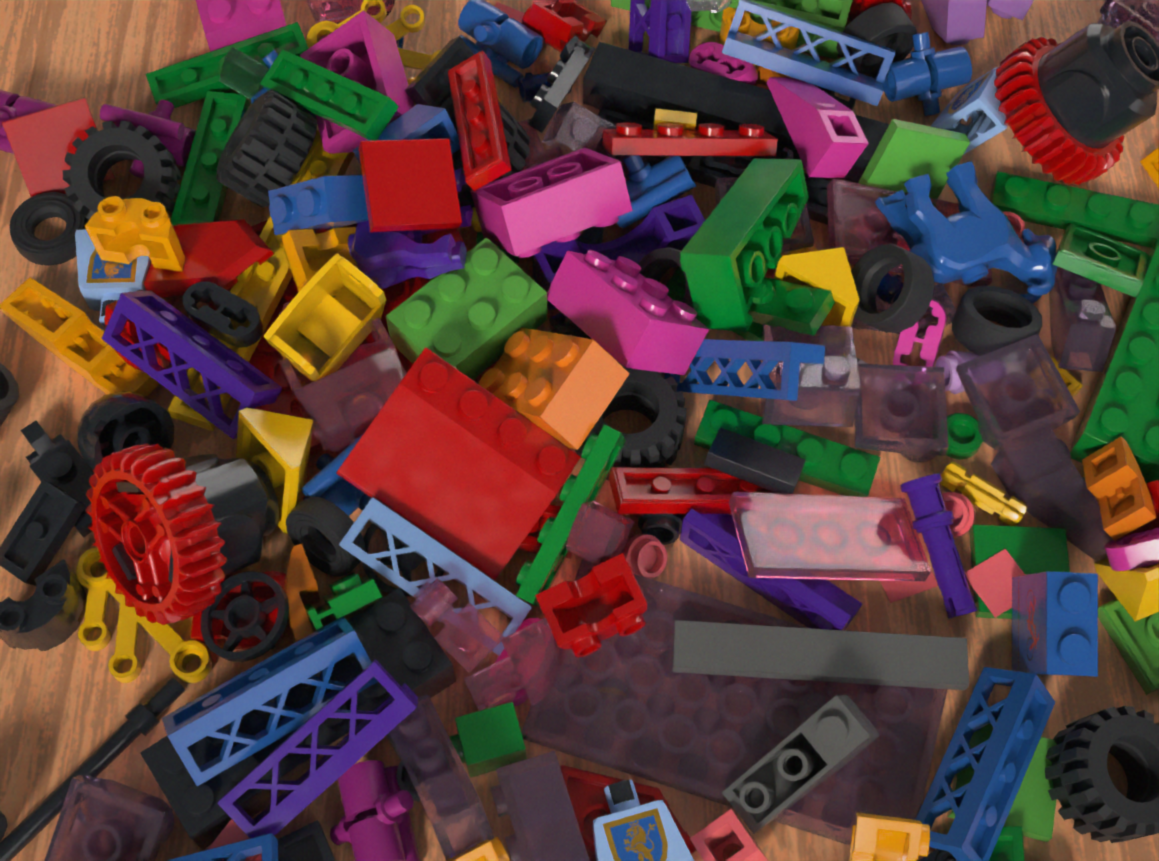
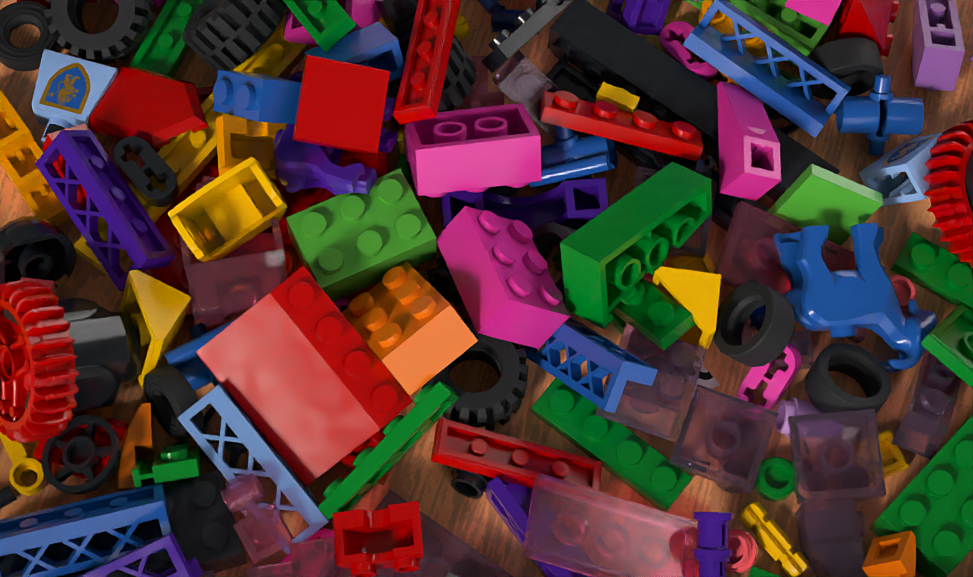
camera: 15 degrees right, 5 degrees up
(135, 229) = (92, 67): light orange cylinder -> none
(598, 533) = (410, 474): clear pink brick -> none
(646, 555) = (446, 504): coral plate -> none
(754, 462) = (573, 449): black tile -> none

